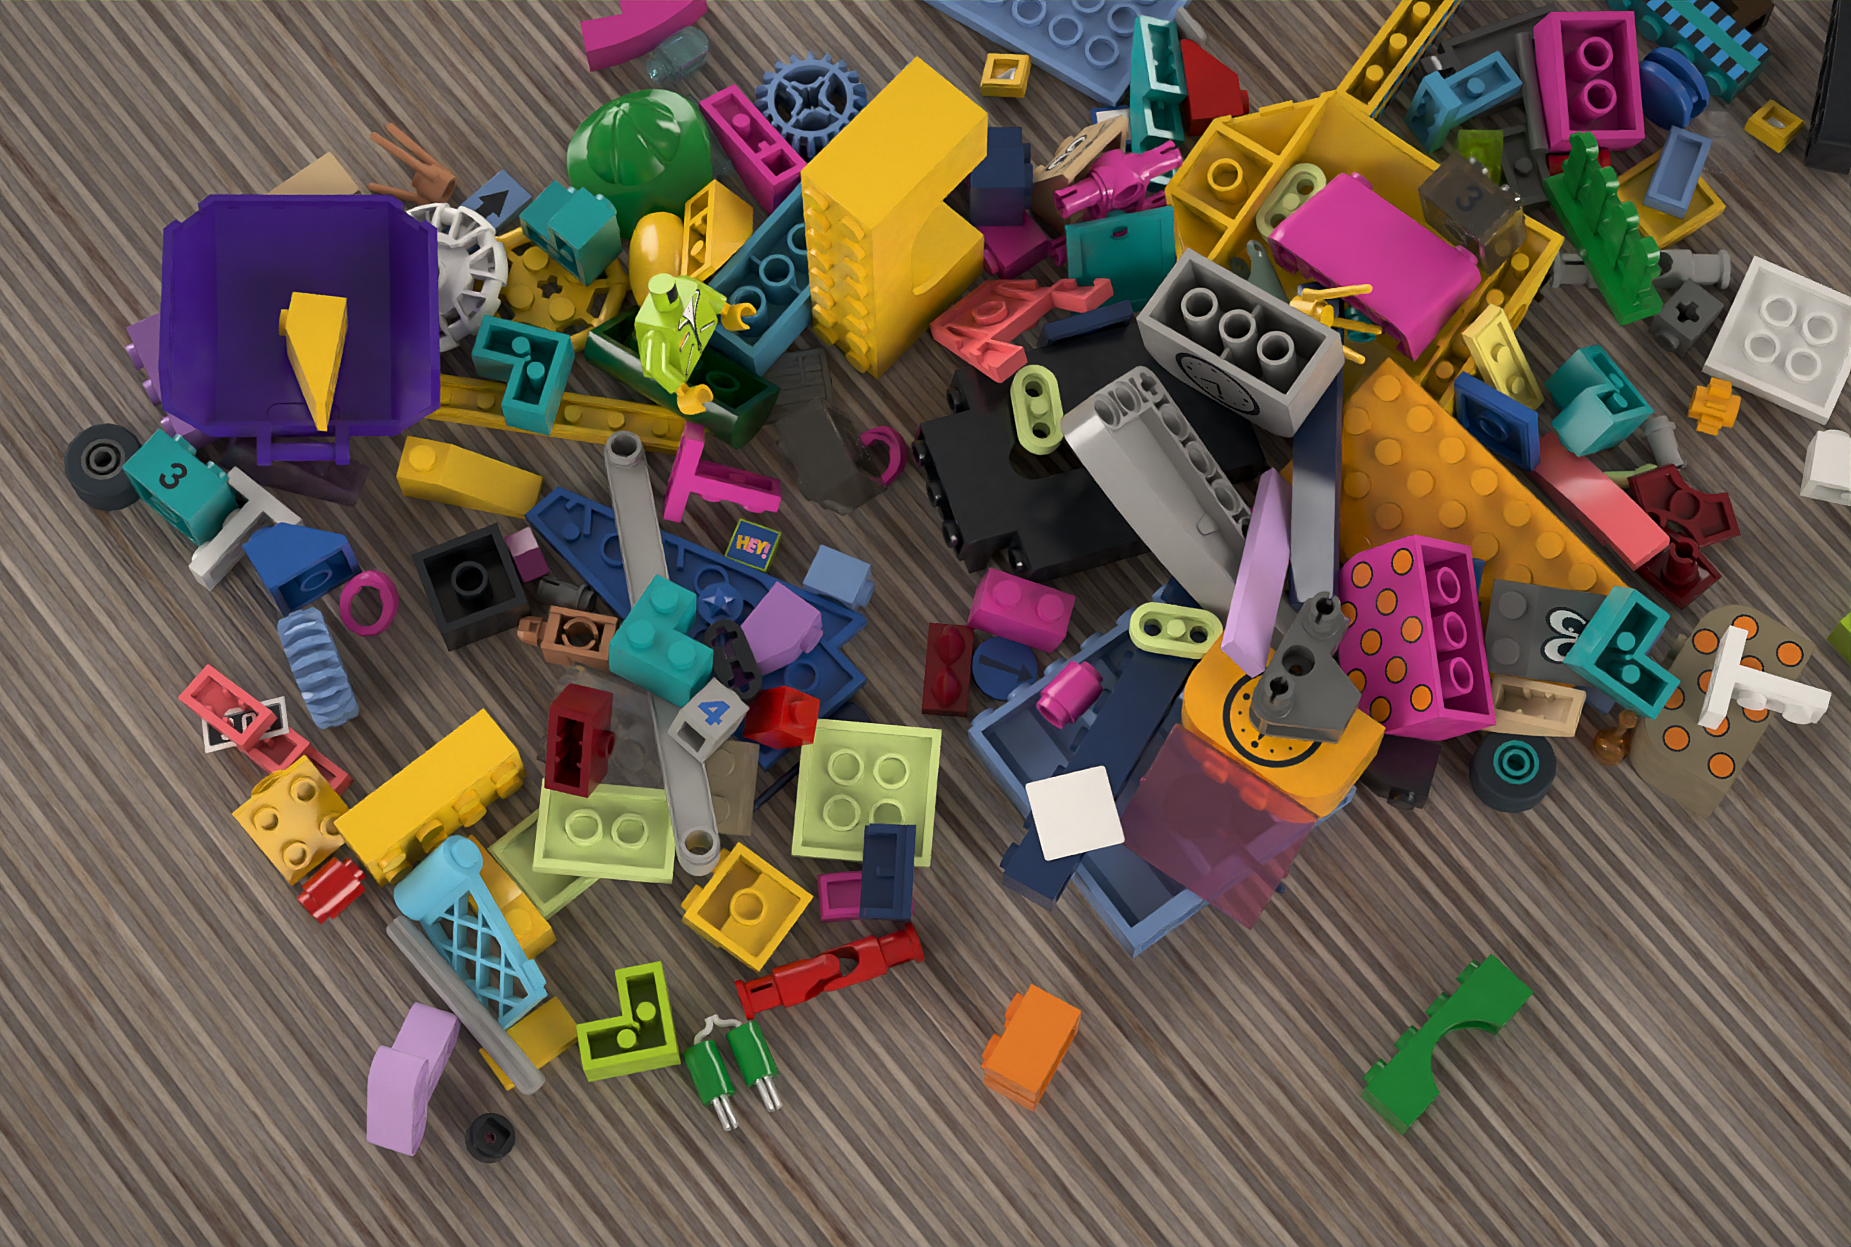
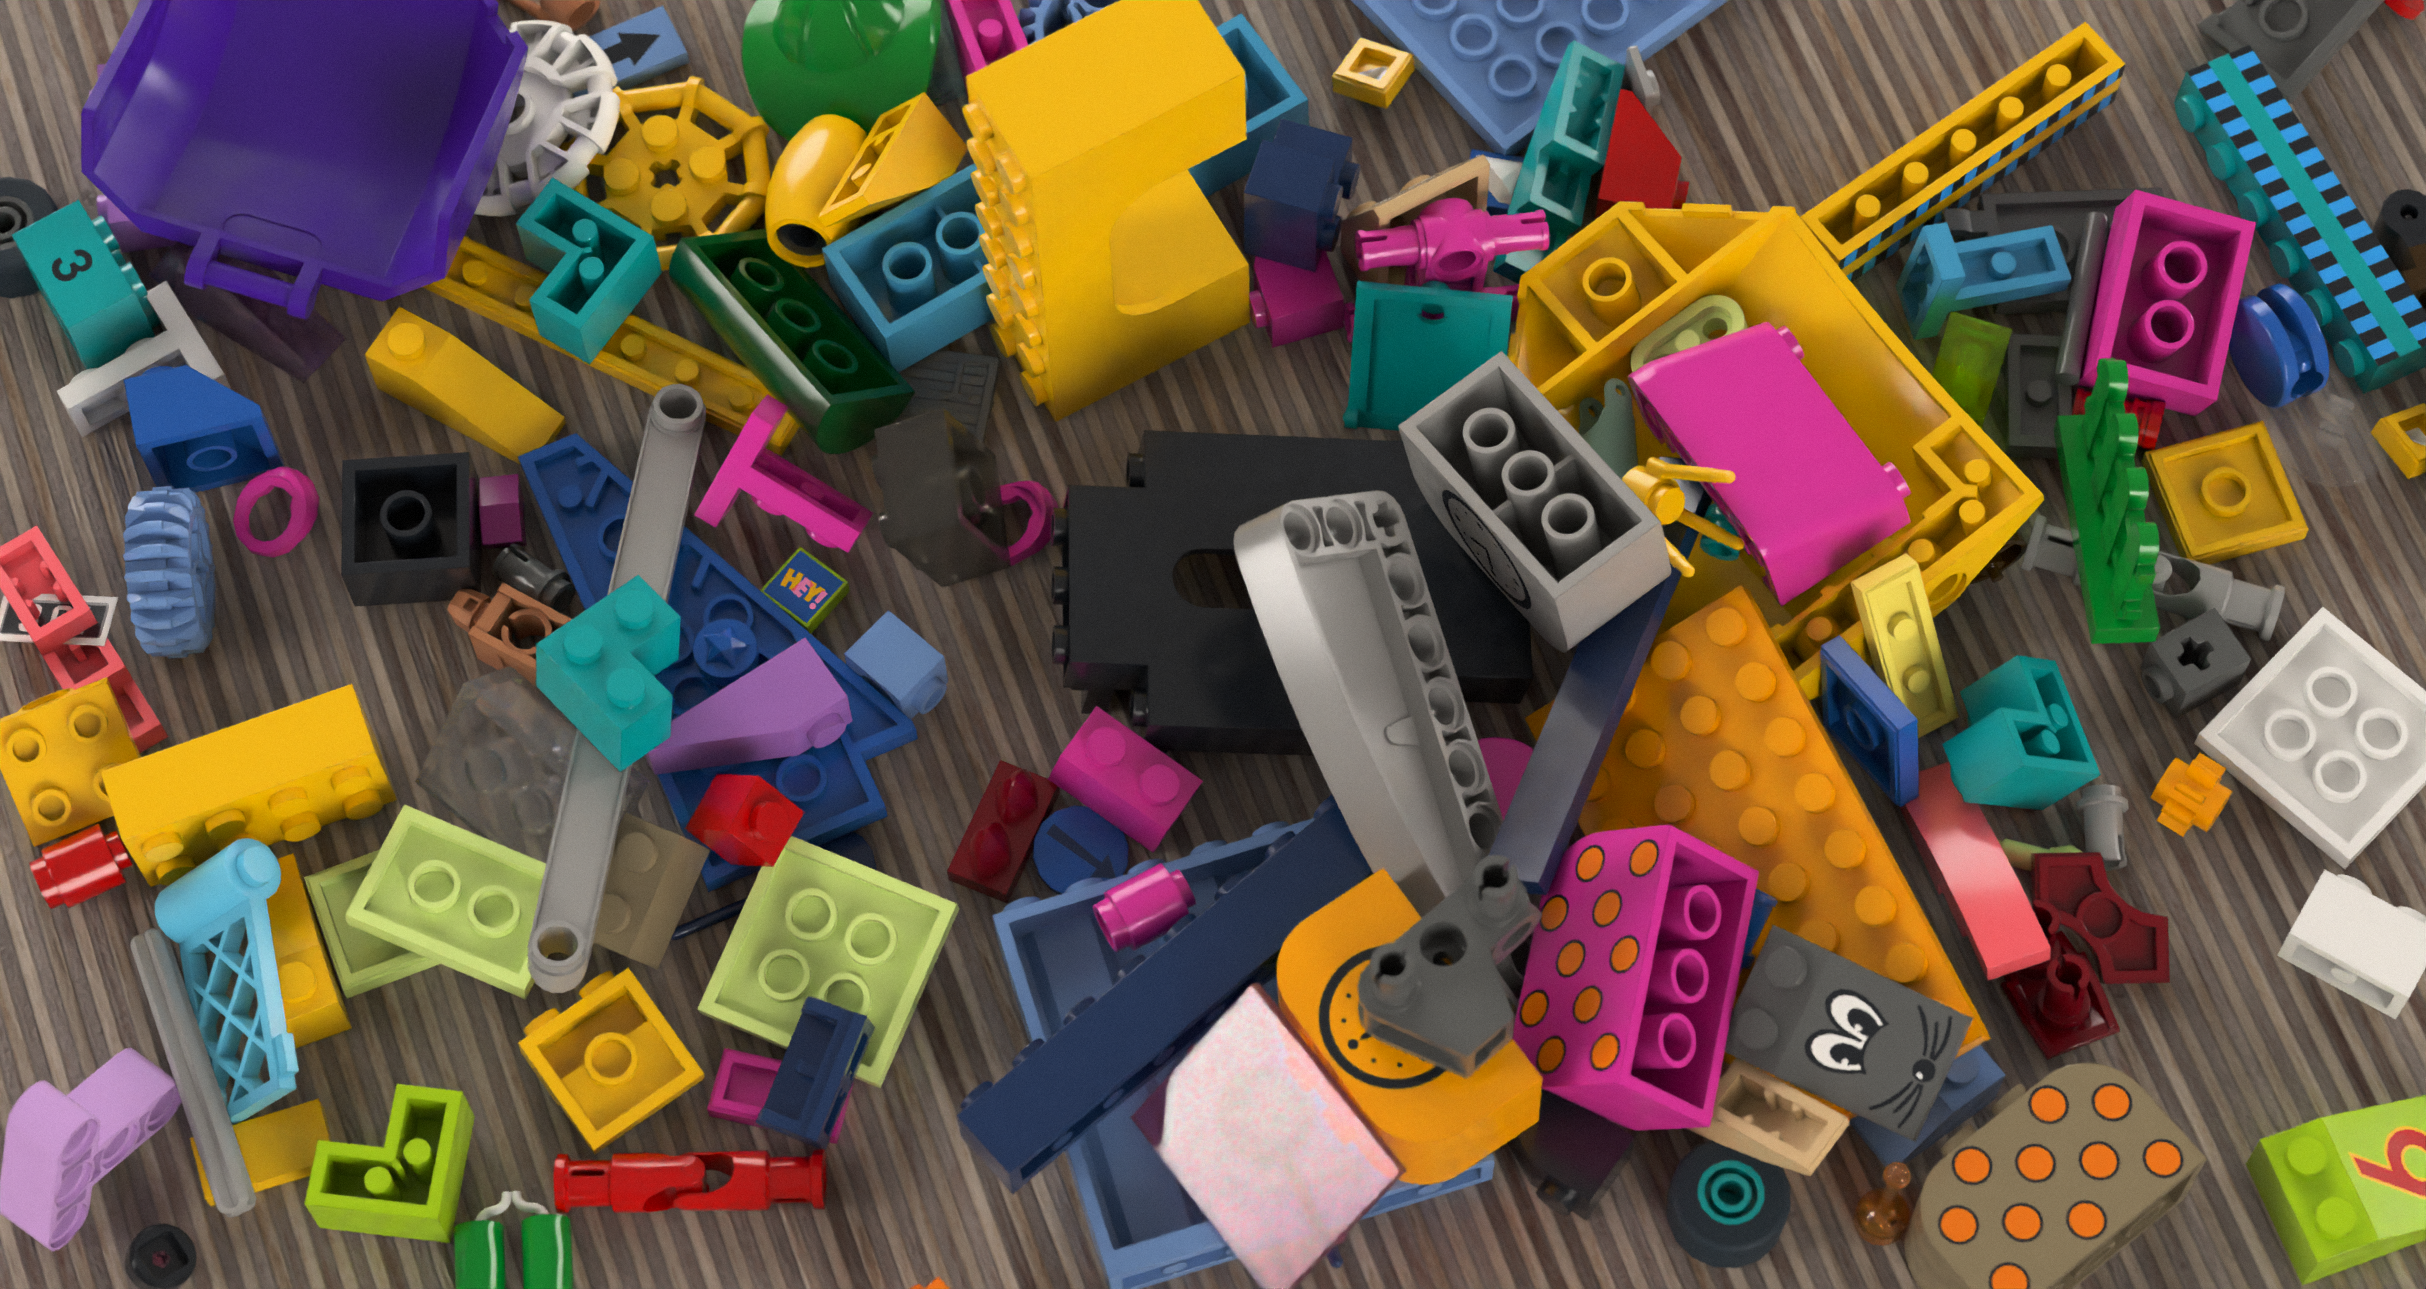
camera: 20 degrees right, 5 degrees down
(315, 344) = (323, 148): yellow slope -> none
(574, 230) = (716, 107): teal brick -> none
(579, 740) = (463, 765): dark red brick -> none
(675, 330) = (787, 264): lime torso -> none
(708, 720) = (635, 787): light grey brick -> none
(742, 658) = (717, 725): black beam -> none
(1000, 310) = (1212, 385): coral wing -> none
(1037, 412) = (1224, 512): yellowish green plate -> none
(1074, 813) = (1083, 1065): white sticker -> none
(1086, 323) = (1346, 421): dark blue tile -> none
(1176, 627) = (1312, 857): yellowish green plate -> none
(1260, 576) = (1445, 824): lavender tile -> none
(1474, 211) = (1923, 420): clear smoke brick -> none
(1614, 650) = (1898, 1078): teal brick -> none
(1677, 172) = (2253, 462): medium blue tile -> none
(1756, 688) = (2092, 1189): white bracket -> none

